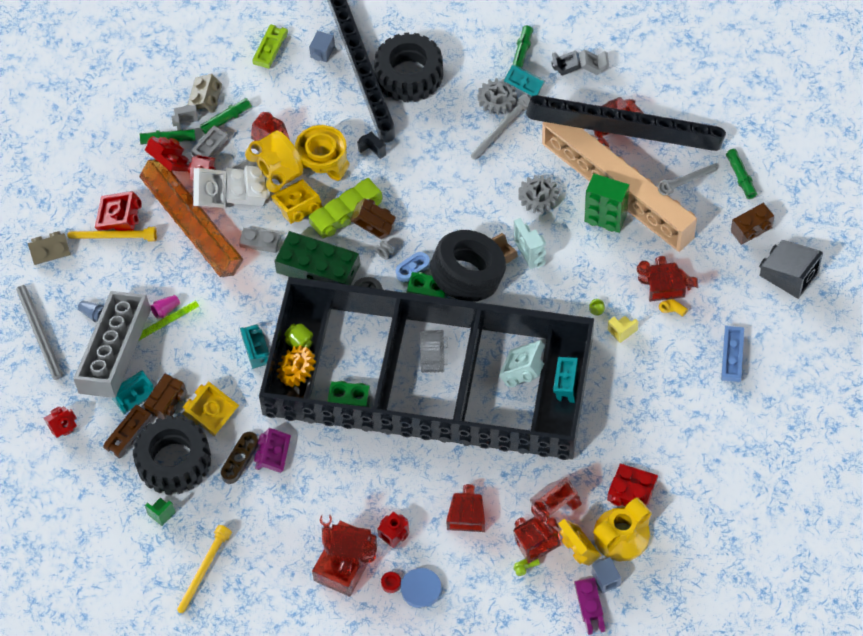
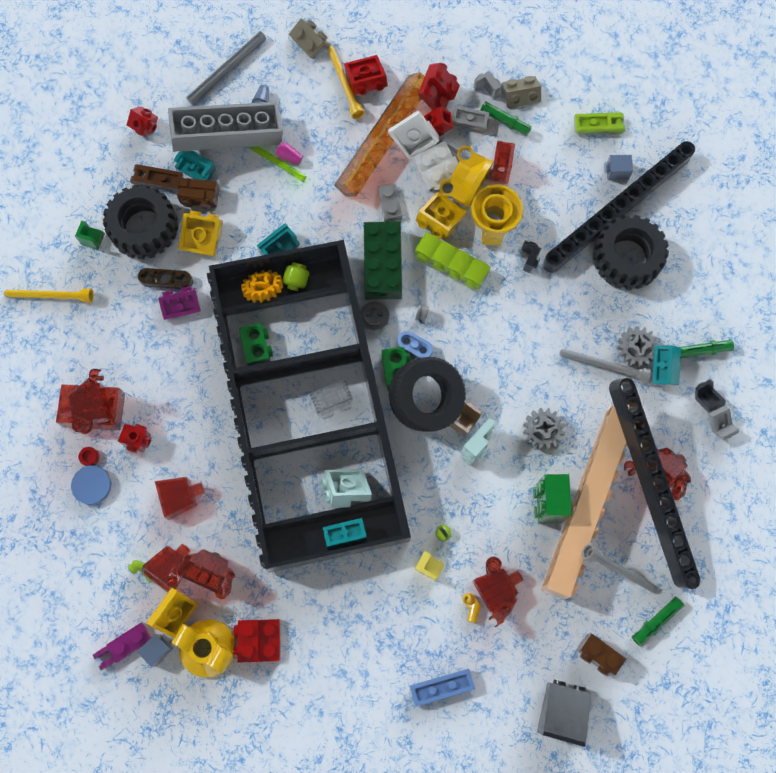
camera: 65 degrees right, 15 degrees up
(179, 135) = (464, 83): green pin -> none
(373, 218) = (447, 289): reddish brown brick -> none

